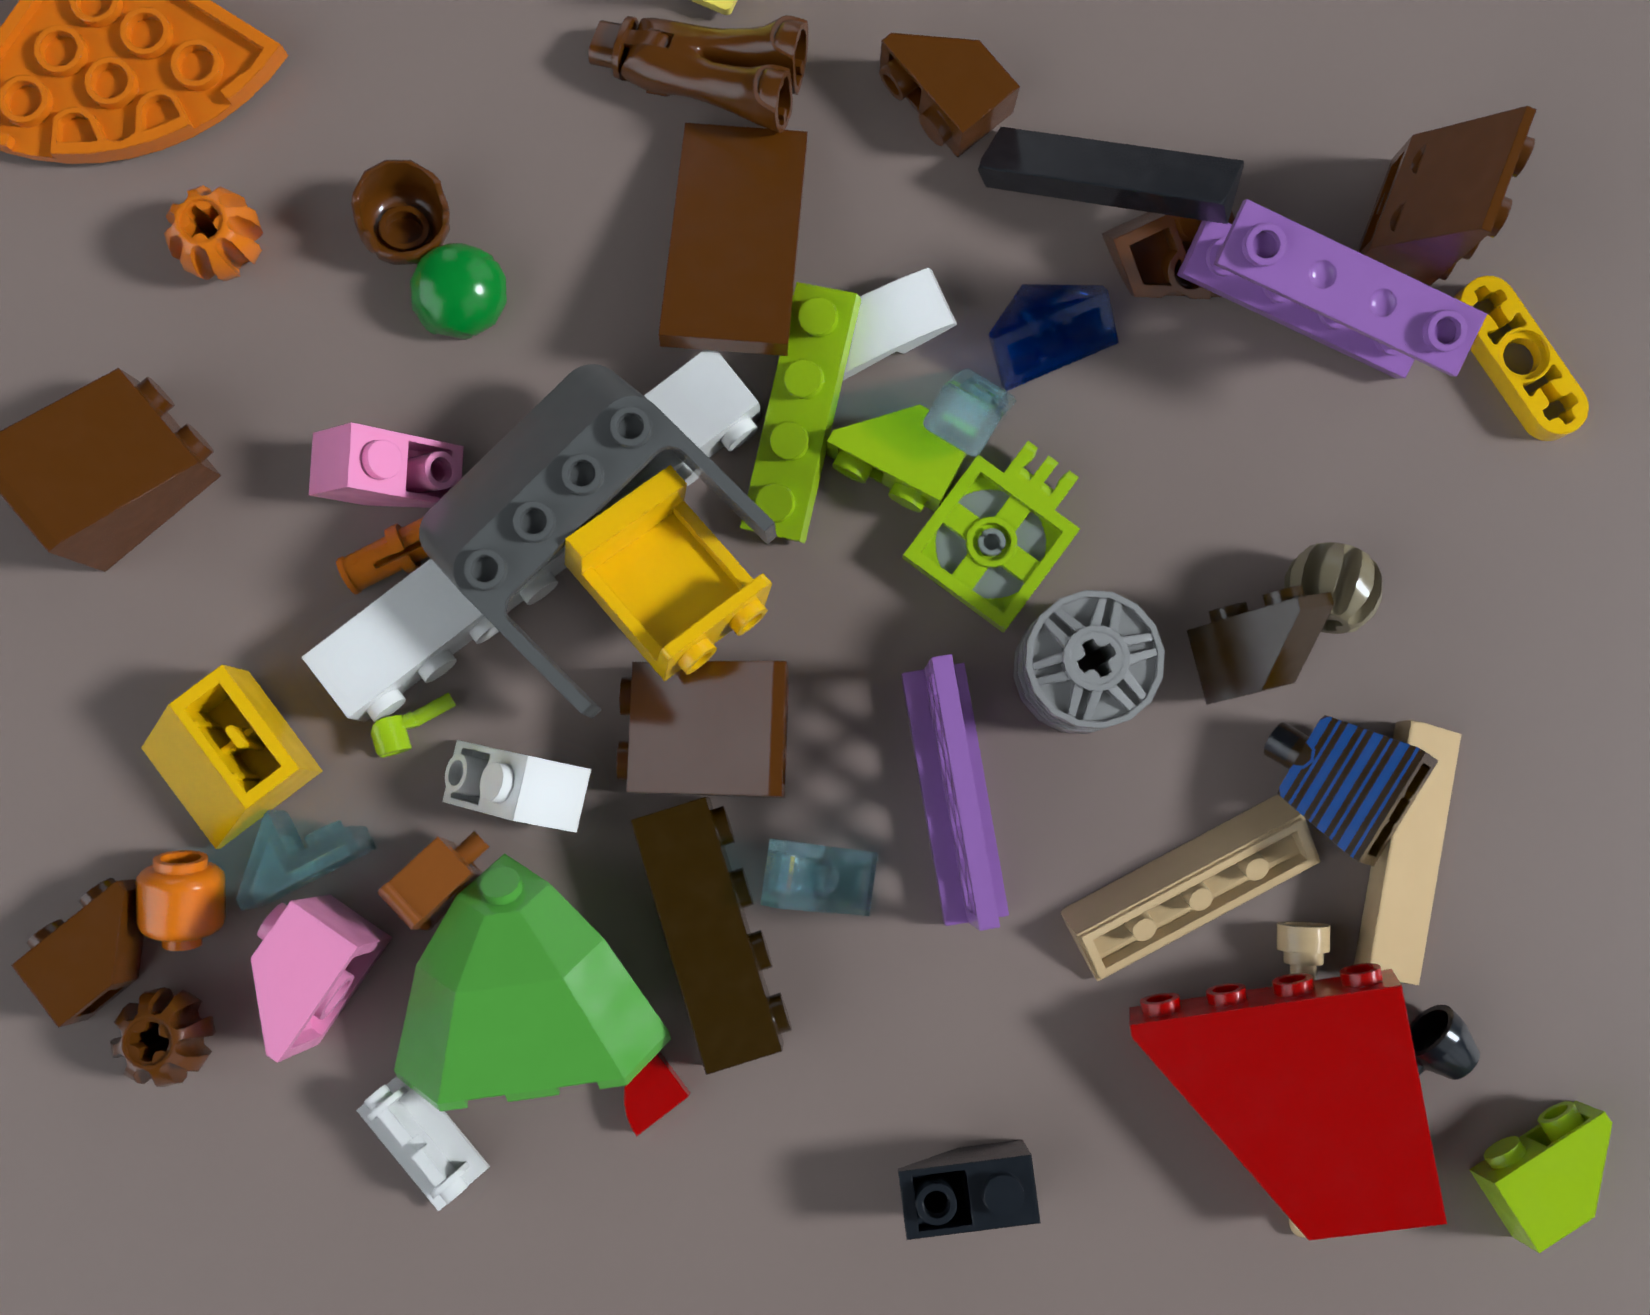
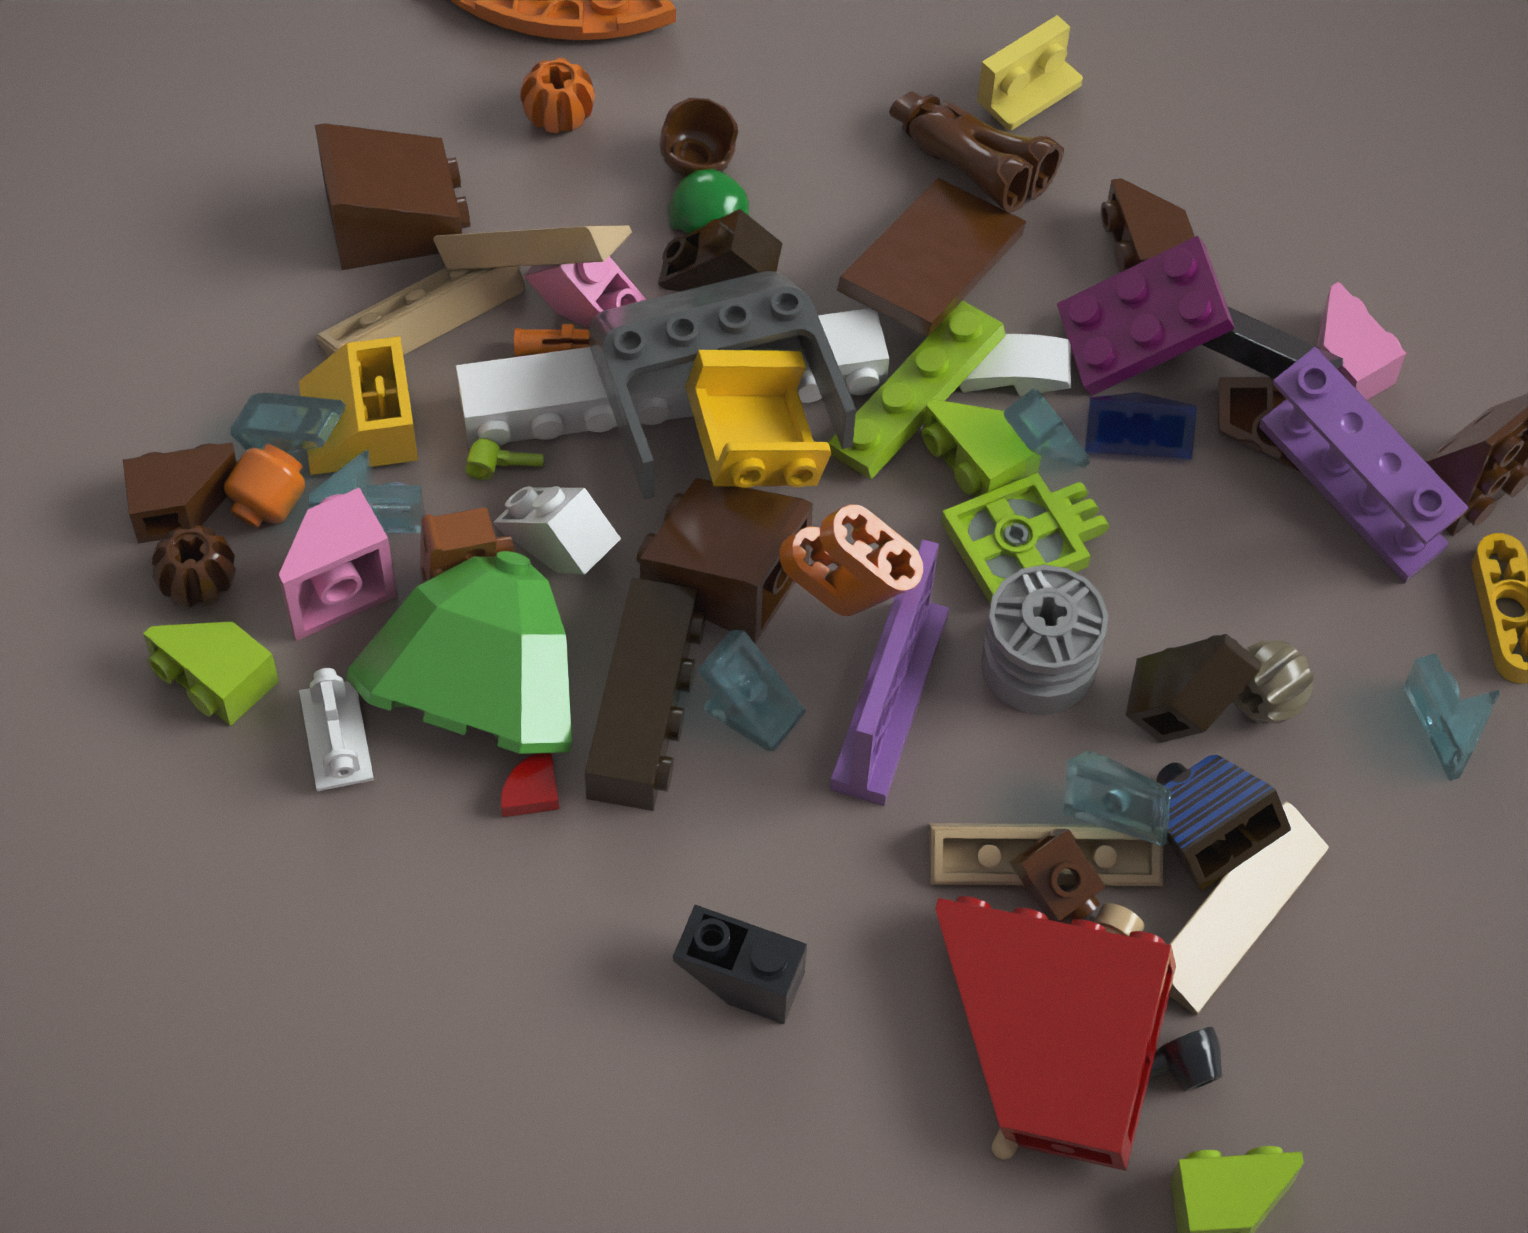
camera: 25 degrees right, 25 degrees down
(159, 818) = (286, 421): none -> clear light blue slope
(222, 580) = (427, 308): none -> tan slope
(257, 1139) = (215, 664): none -> lime slope
(303, 470) = (530, 247): none -> tan slope
(509, 356) = (719, 253): none -> dark brown slope
(874, 727) = (863, 573): none -> orange connector
(1001, 200) = (1145, 315): none -> magenta plate
(1227, 116) = (1368, 352): none -> bright pink slope
(1240, 931) = (1039, 870): none -> reddish brown brick
(1247, 814) = (1116, 797): none -> clear light blue slope
(1533, 539) = (1448, 722): none -> clear light blue slope

